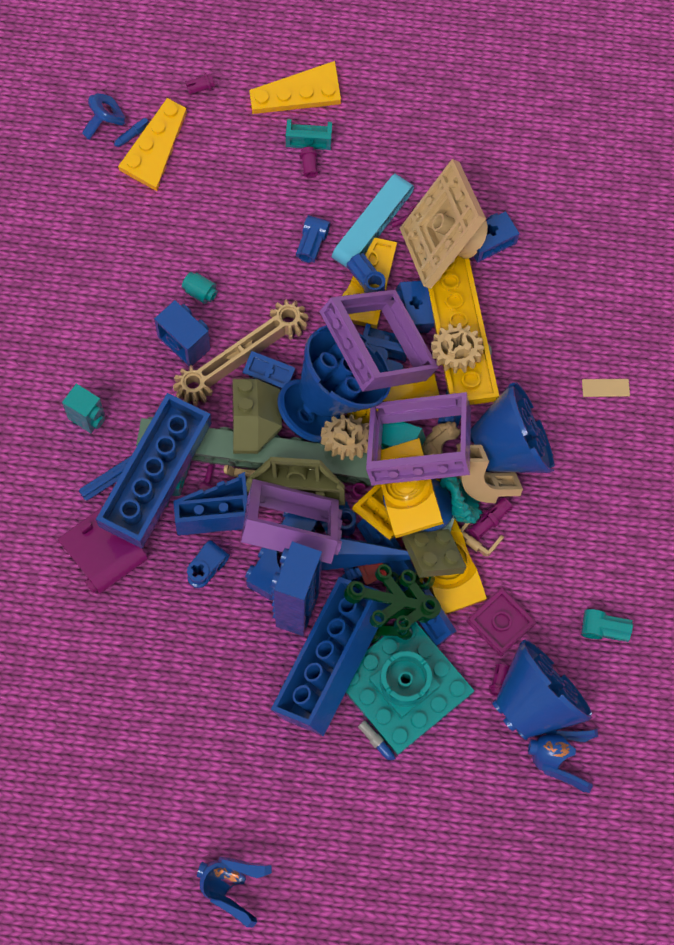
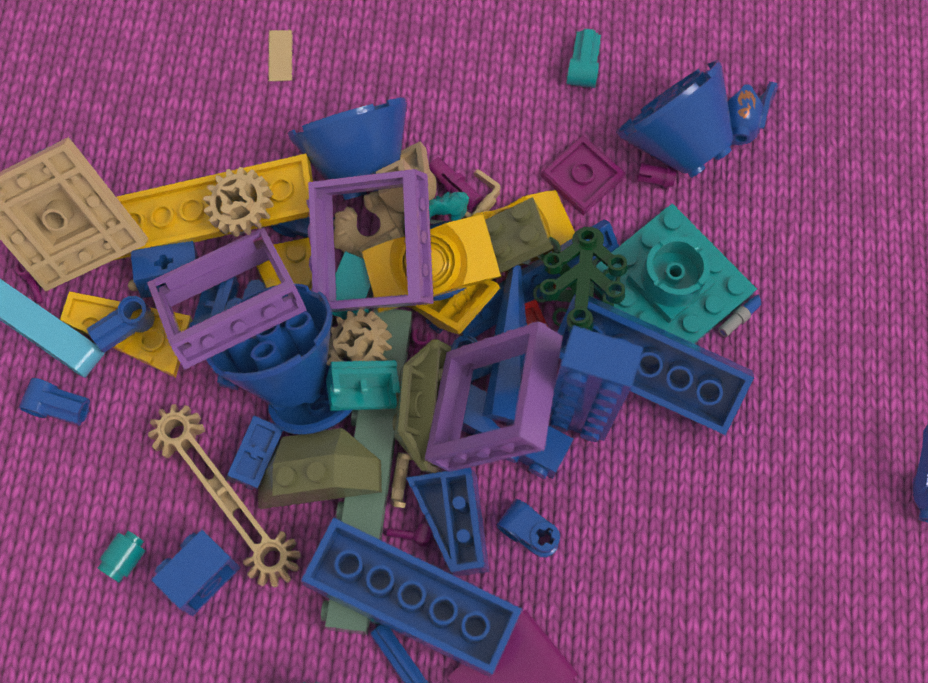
camera: 90 degrees left, 0 degrees up
(310, 435) = (362, 385): none -> teal hinge

